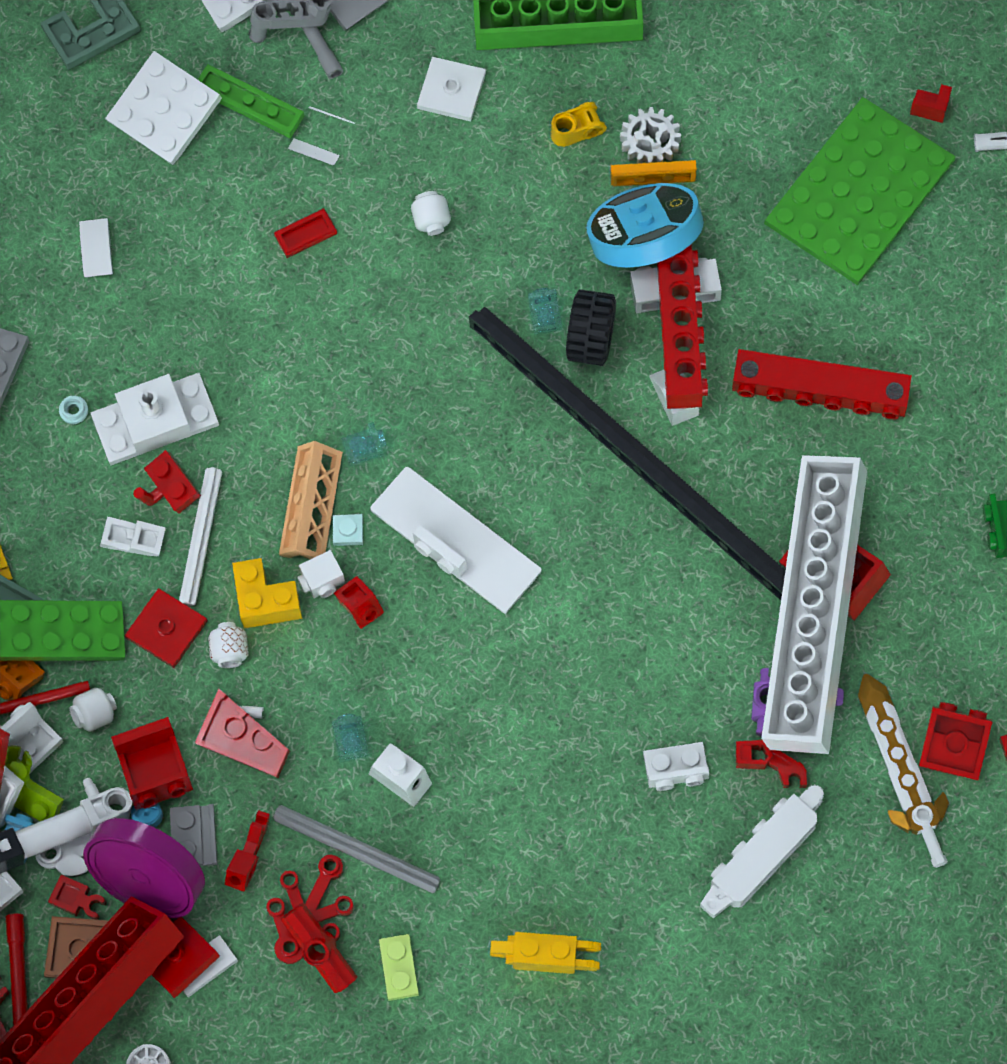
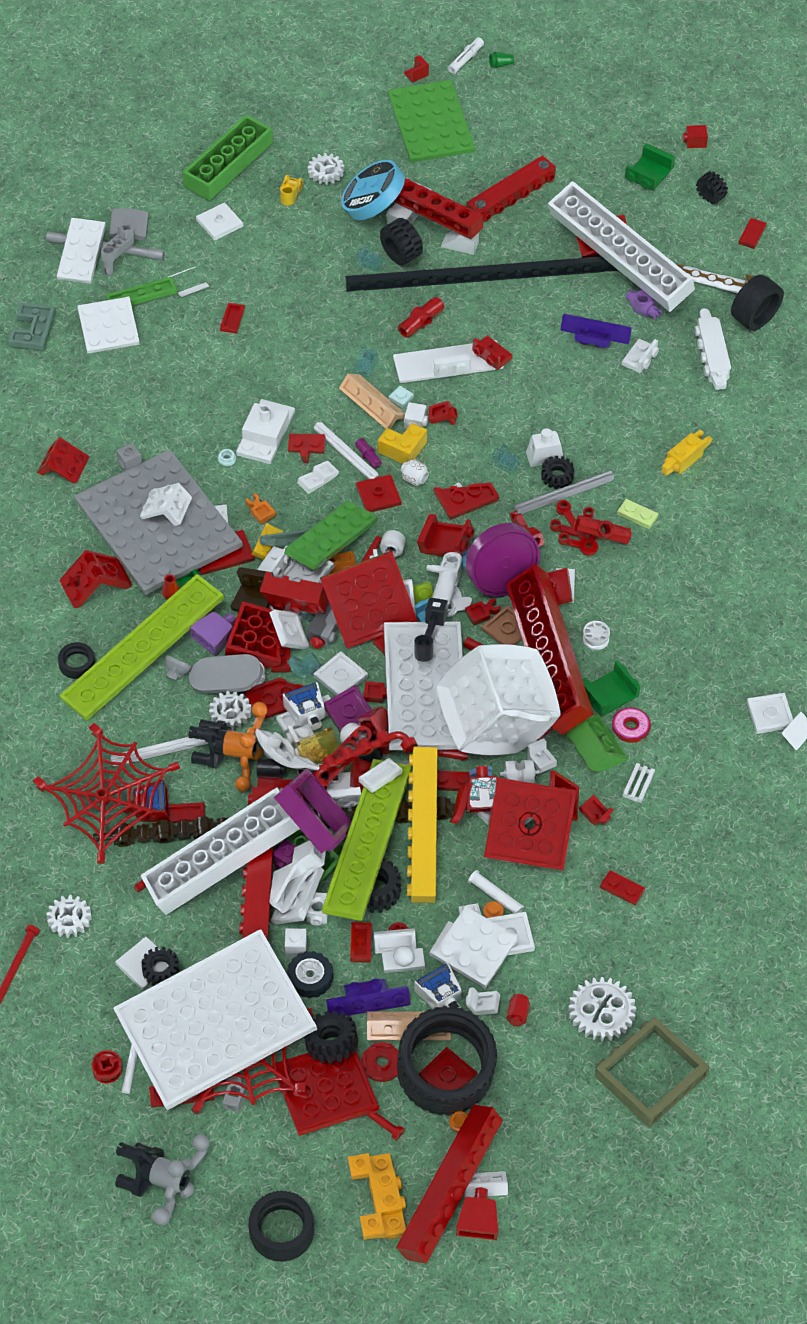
camera: 55 degrees left, 15 degrees down
(22, 516) = (260, 510): none -> orange plate
(96, 247) = (153, 396): white slope -> none
(218, 565) = (368, 452): none -> magenta axle
(380, 798) = (557, 480): none -> black tyre
(430, 213) = (276, 264): white head -> none
(498, 448) = (421, 317): none -> red piece
(510, 580) = (491, 352): none -> red bracket
(653, 173) = (344, 179): light orange tile -> none
(660, 680) = (595, 331): none -> dark purple bracket
(782, 763) = (671, 320): red piece -> none
(882, 850) = (757, 302): none -> black tyre
(956, 741) = (726, 253): red plate -> none

